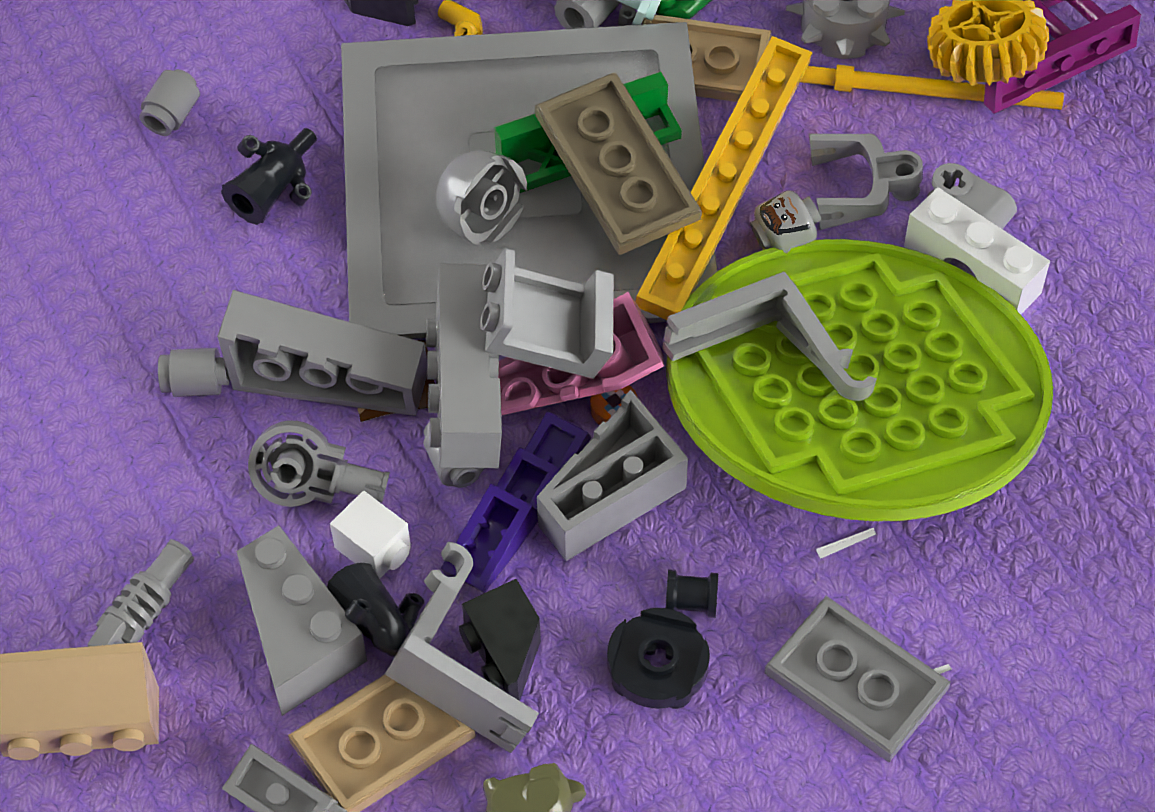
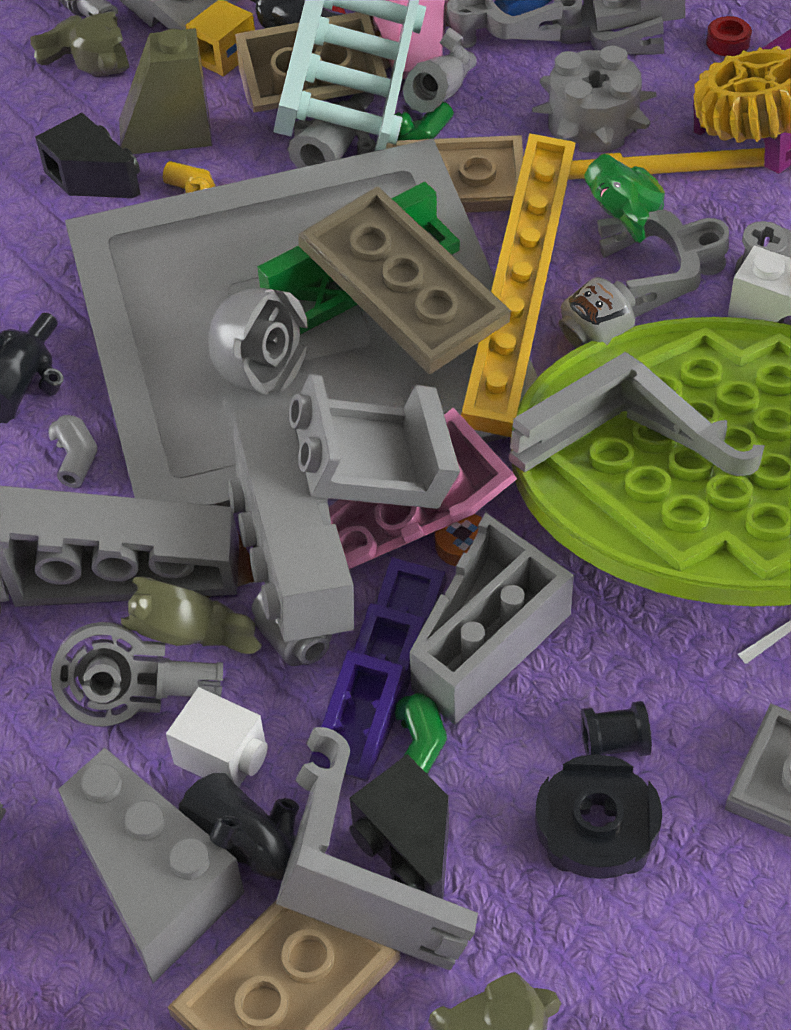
camera: 10 degrees left, 5 degrees down
(312, 258) = (80, 449): none -> light grey arm
(366, 430) = (187, 618): none -> olive animal
(541, 561) = (425, 726): none -> green arm
(842, 111) = (625, 192): none -> green animal

